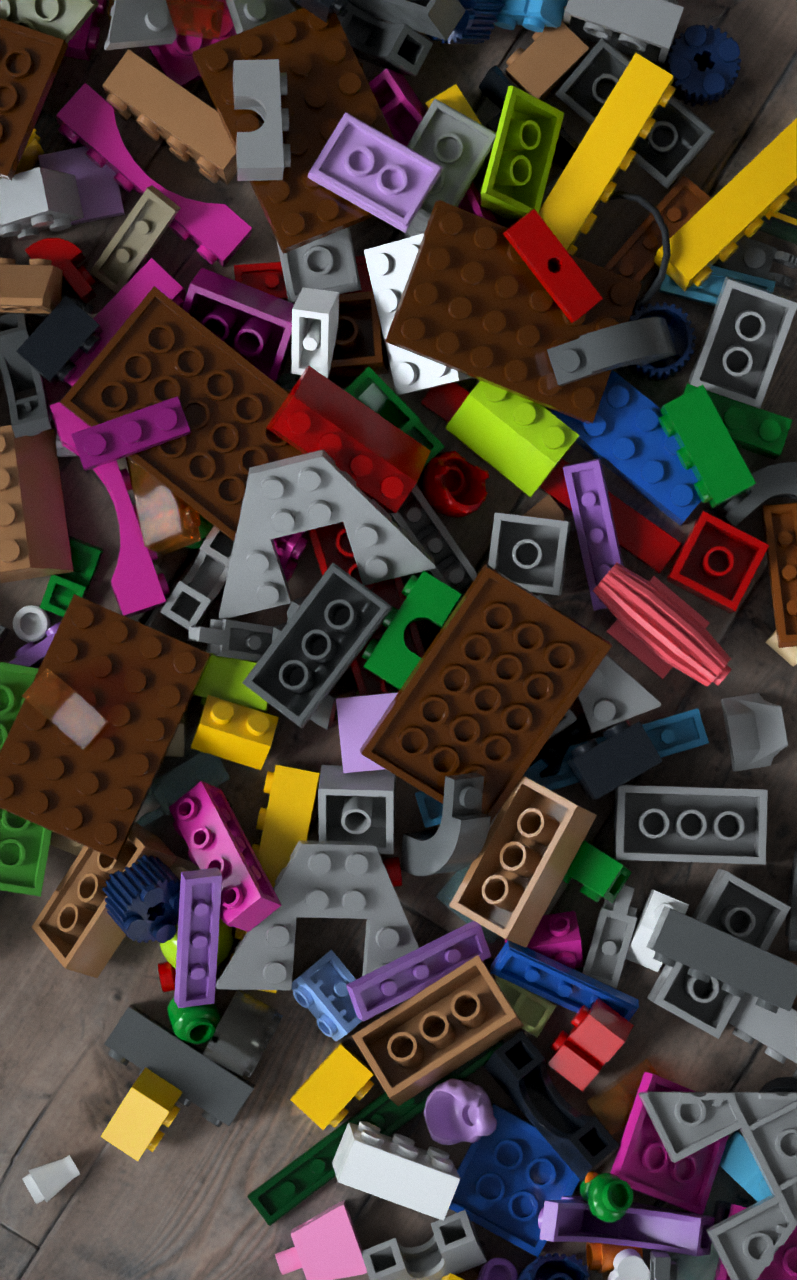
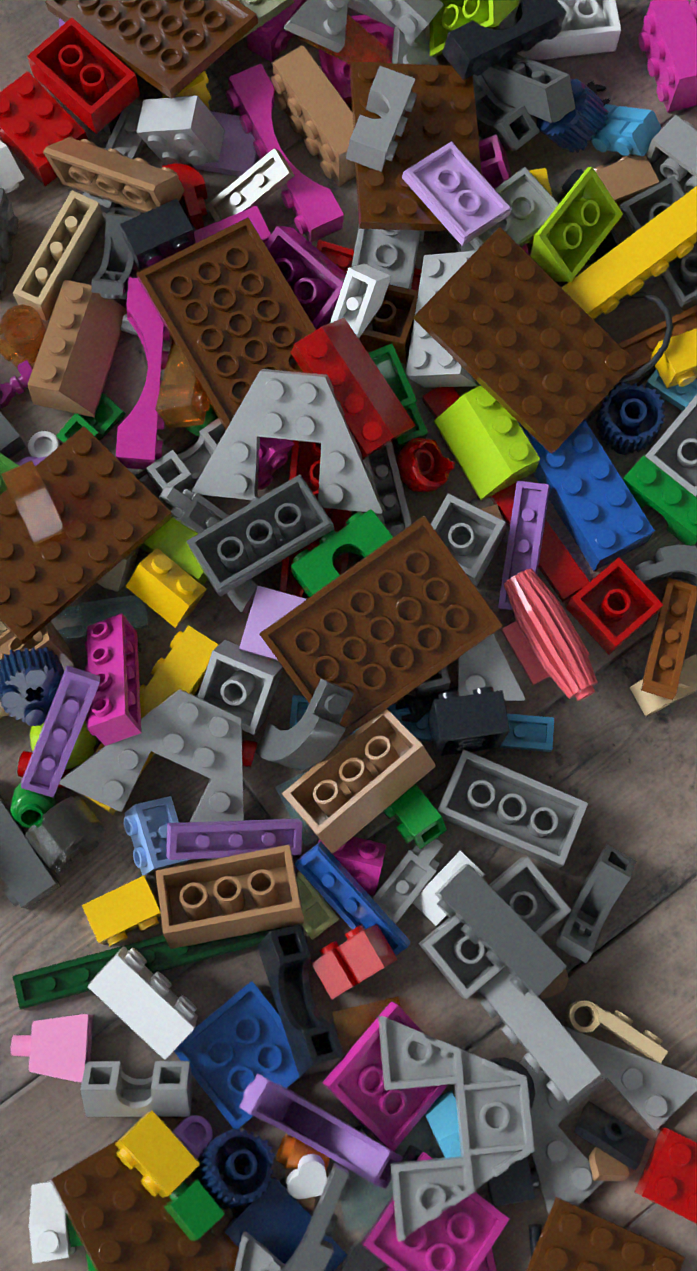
camera: 20 degrees right, 10 degrees down
(131, 433) = (181, 316): magenta plate -> none
(459, 1113) = (219, 974): lavender hair -> none
(568, 283) = (566, 292): red tile -> none
(606, 1195) = (314, 1095): green animal -> none
(612, 347) = (597, 390): dark grey arch -> none
(706, 447) = (641, 504): green brick -> none
(753, 731) = (593, 756): light grey slope -> none

